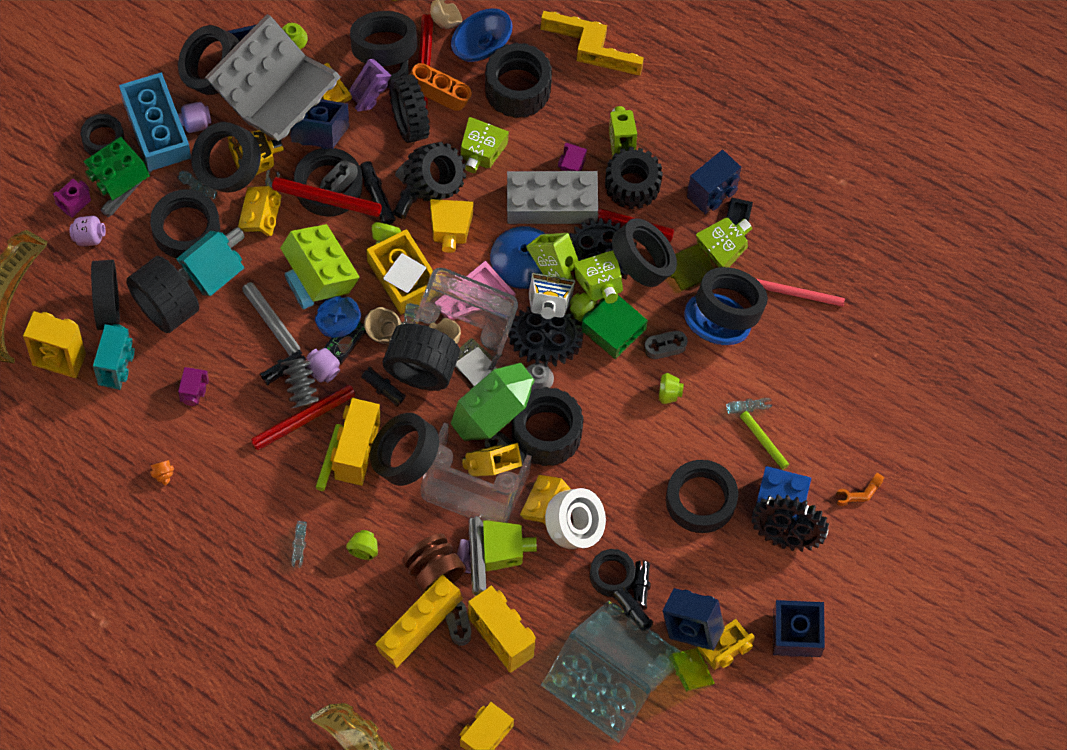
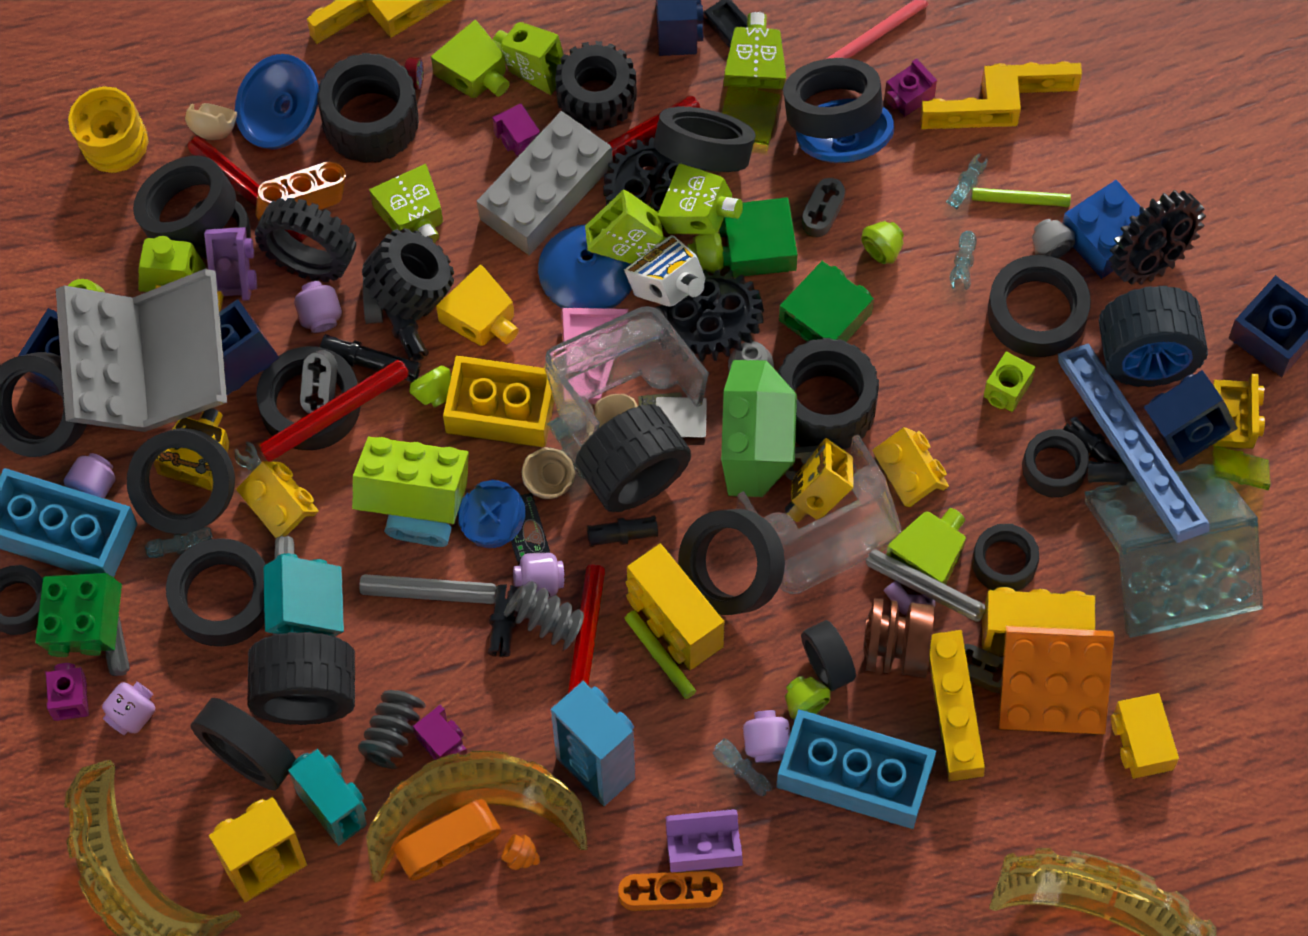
camera: 45 degrees left, 0 degrees up
(140, 431) = (447, 839): none -> orange beam
(169, 410) = (461, 779): none -> clear yellow windscreen
(177, 358) = (389, 726): none -> dark grey piece
(185, 550) = (680, 878): none -> orange beam
(239, 455) = (594, 742): none -> dark azure brick
(240, 554) = (703, 840): none -> medium lavender bracket
(324, 542) = (766, 736): none -> lavender head
(340, 57) = (166, 262): none -> lime torso
(341, 598) = (855, 769): none -> dark azure brick
(383, 146) = (317, 307): none -> lavender head
(394, 537) = (828, 655): none -> black tyre
(404, 273) = (510, 398): white sticker -> none
(474, 660) = (1056, 680): none -> orange plate
(535, 570) = (1014, 535): none -> black tyre
(561, 86) = (415, 70): none -> dark red tile
(587, 517) = (967, 449): white piece -> none
(593, 109) = (471, 63): none -> lime torso
(602, 389) = (826, 305): none -> green brick
(644, 505) = (1012, 370): none -> lime brick
(649, 599) = (1133, 443): none -> medium blue tile
(697, 438) = (964, 259): none -> clear light blue piece
(726, 564) = (1153, 336): none -> black wheel
(748, 474) = (1052, 238): none -> light grey cone
(778, 334) = (910, 88): none -> magenta brick
(817, 383) = (1000, 95): none -> yellow bracket
(864, 496) = (1163, 130): orange arm -> none

